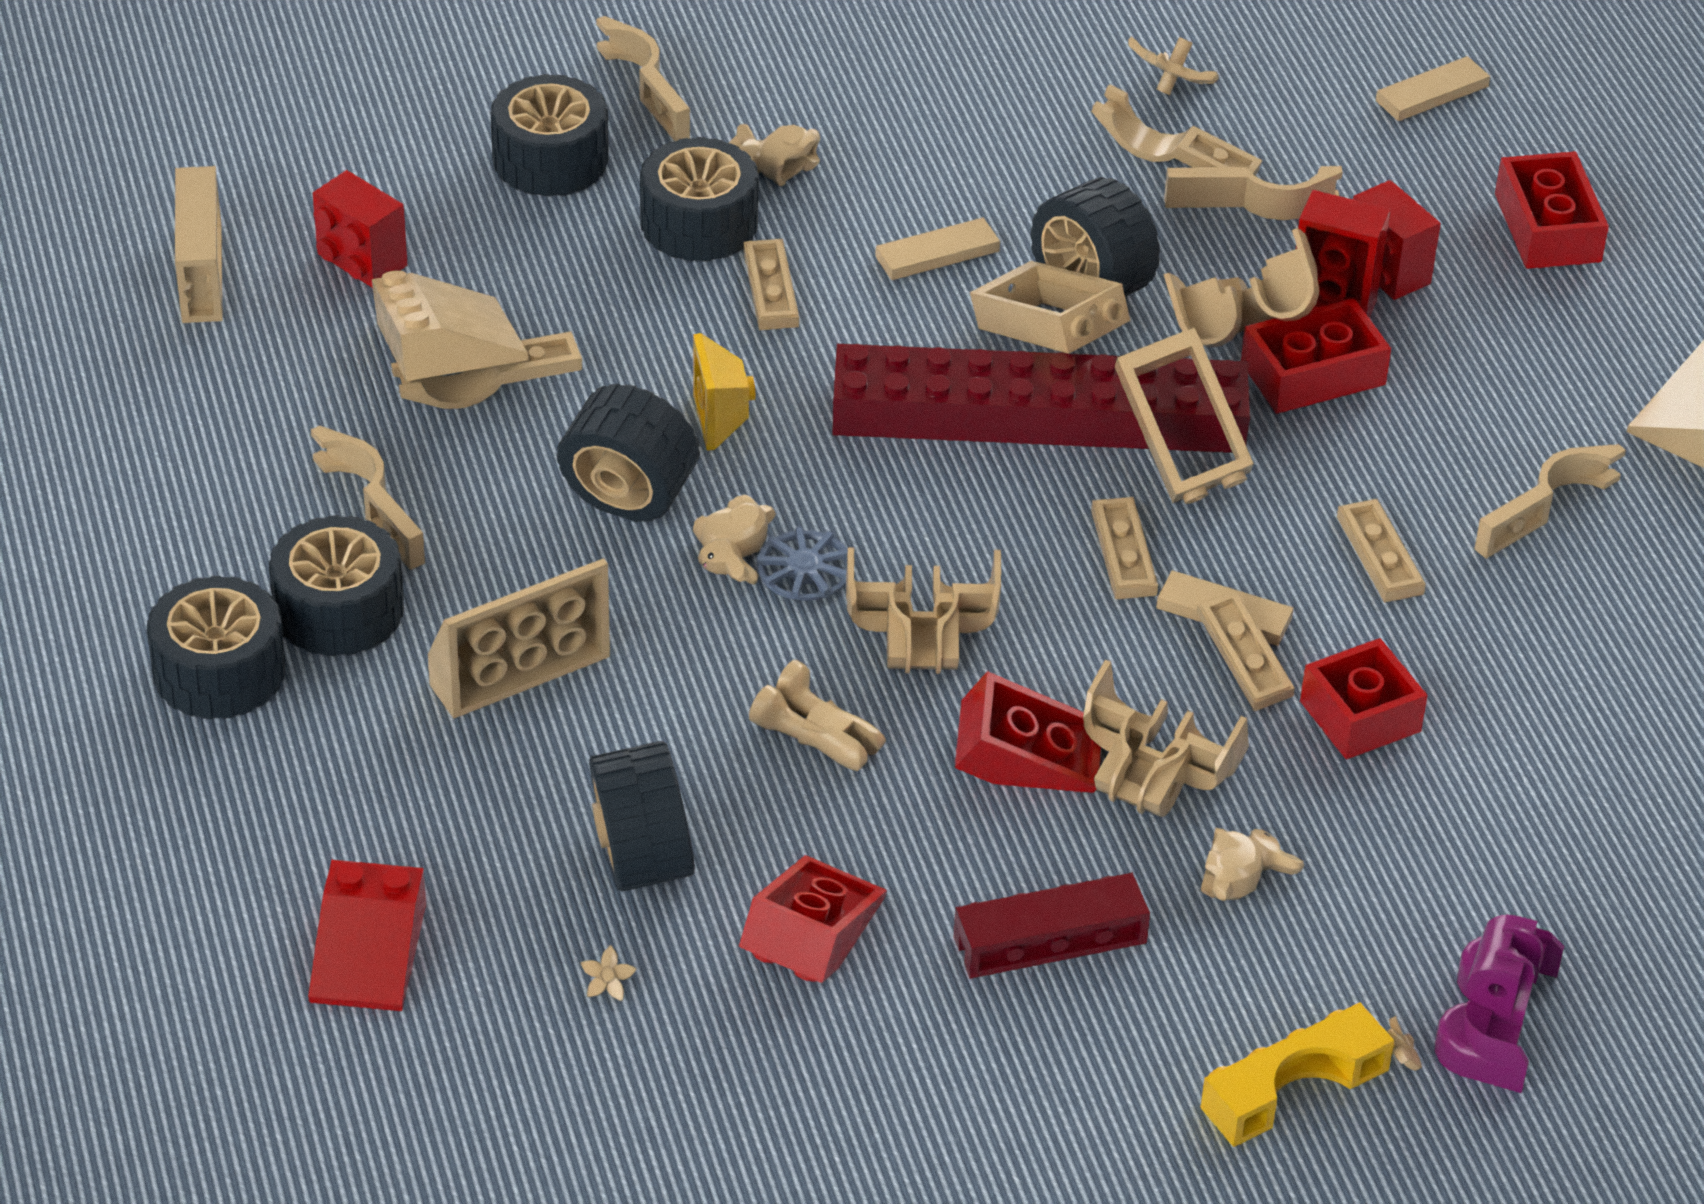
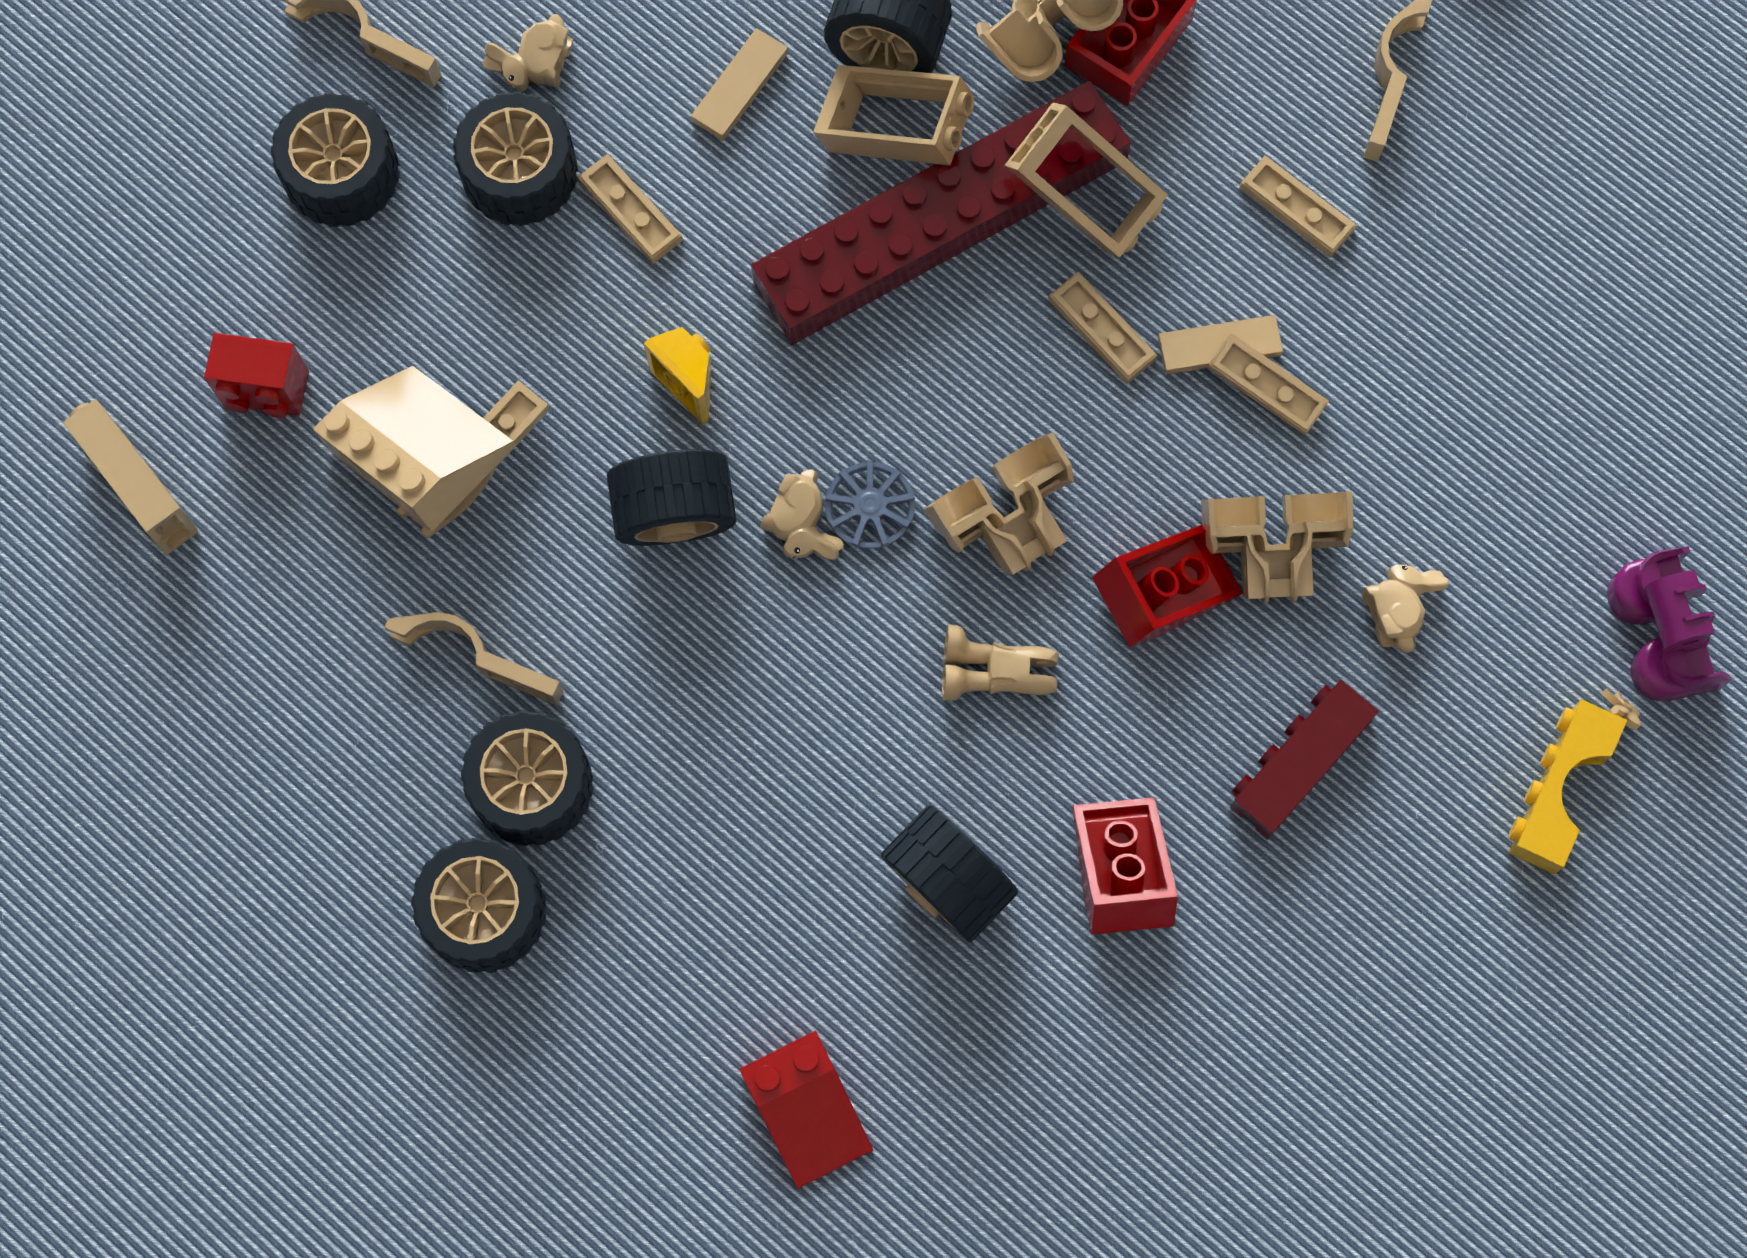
camera: 30 degrees left, 30 degrees up
(521, 640) = (720, 746): tan slope -> none
(607, 974) = (1009, 1022): tan plant -> none
(1363, 698) = (1393, 385): red brick -> none

